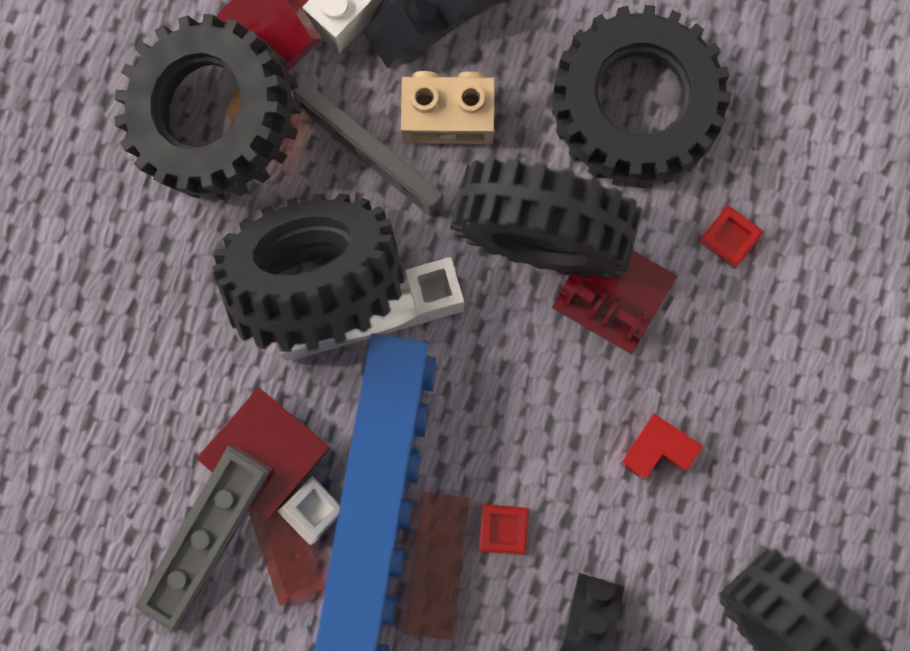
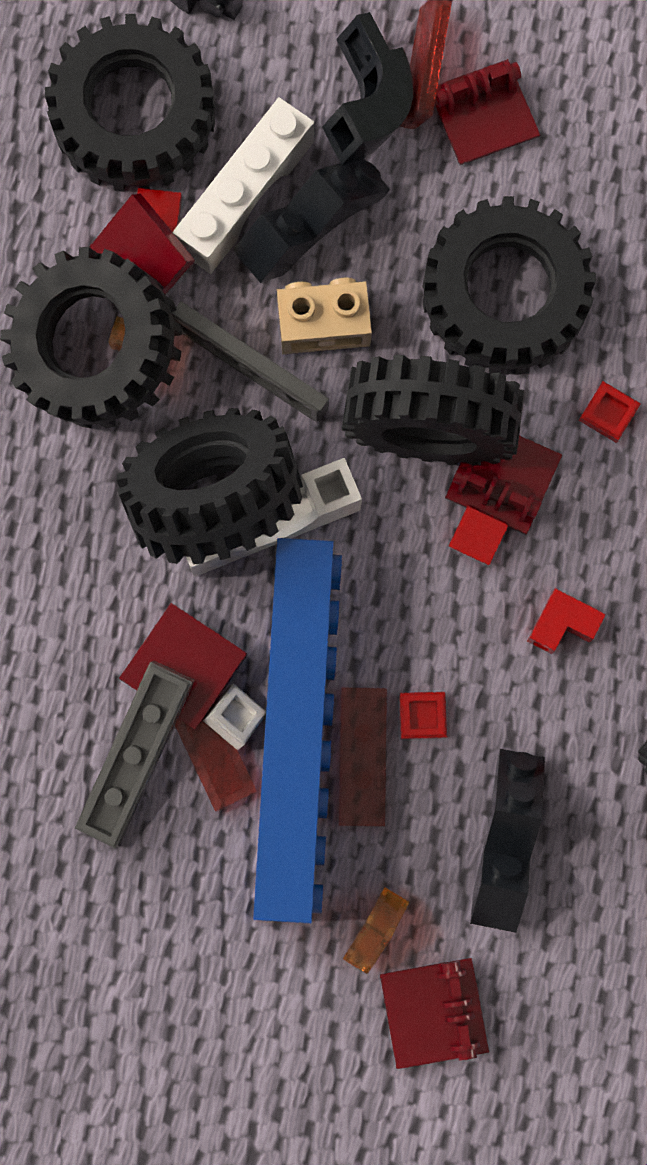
camera: 10 degrees left, 0 degrees up
(582, 349) = (478, 534): none -> red tile

